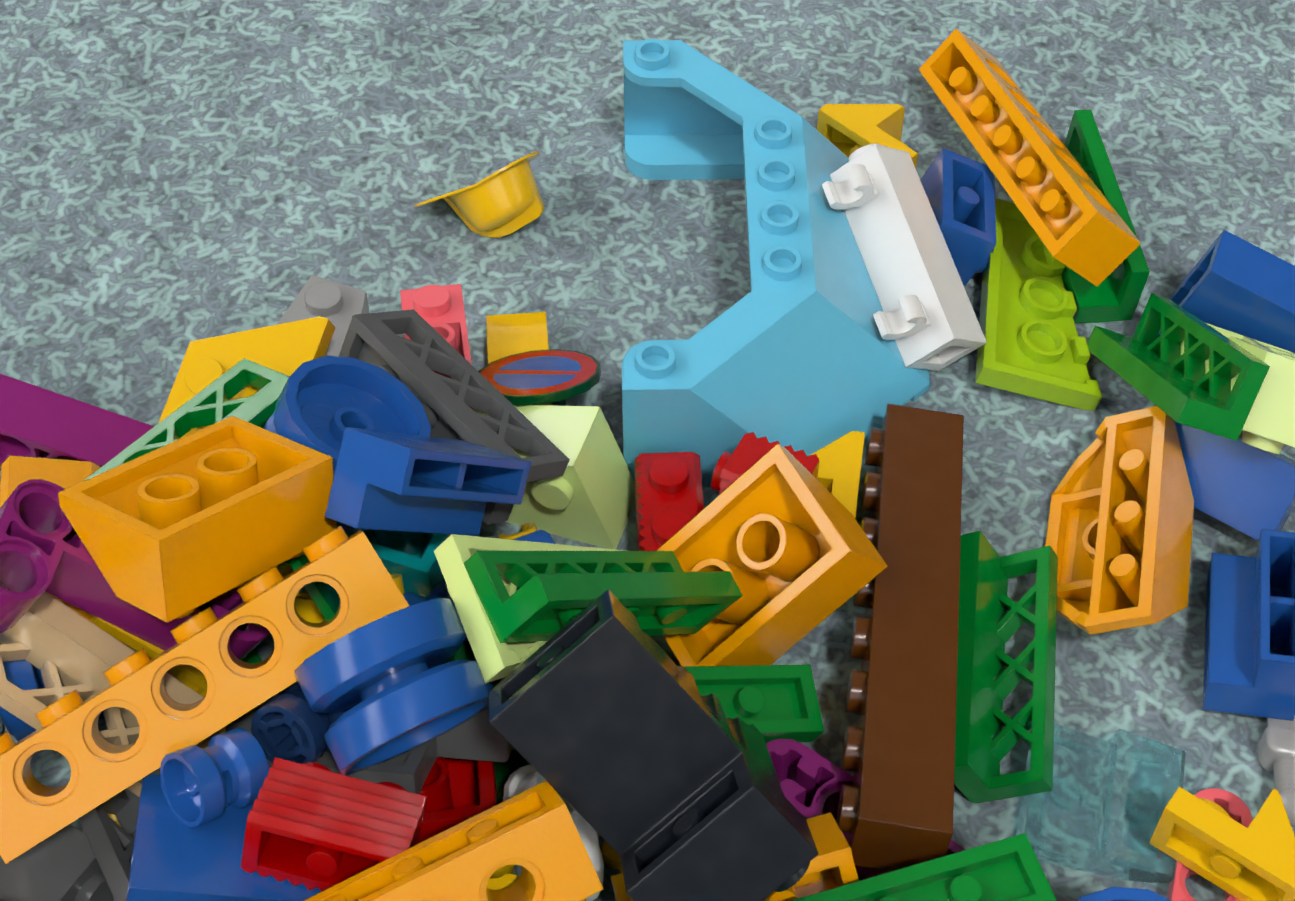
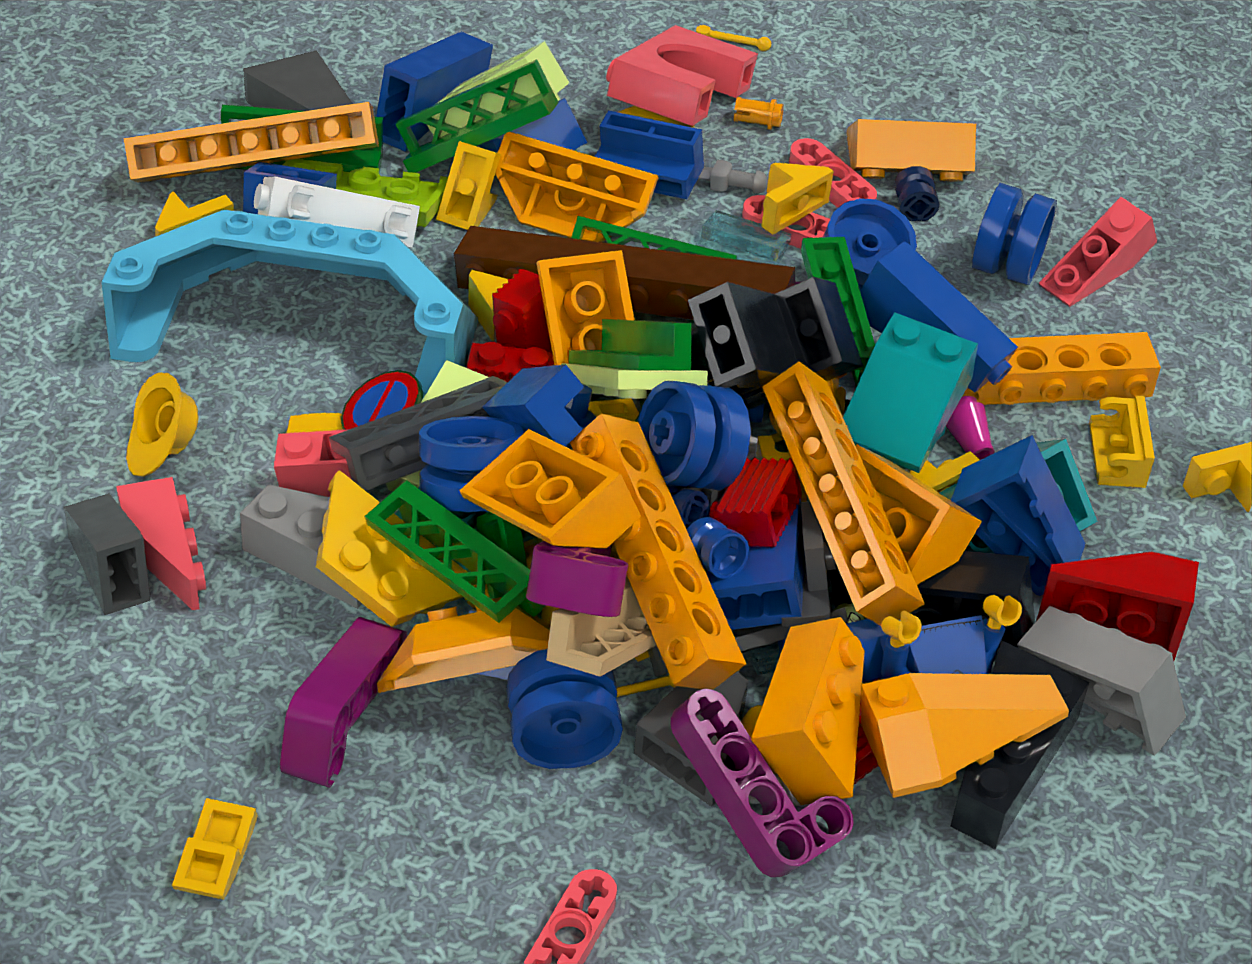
camera: 85 degrees left, 5 degrees down
(260, 185) = (109, 552): none -> dark grey slope
(298, 234) = (167, 544): none -> coral slope
(1066, 411) = (468, 187): none -> yellow slope
(1194, 198) = (294, 84): none -> dark grey slope

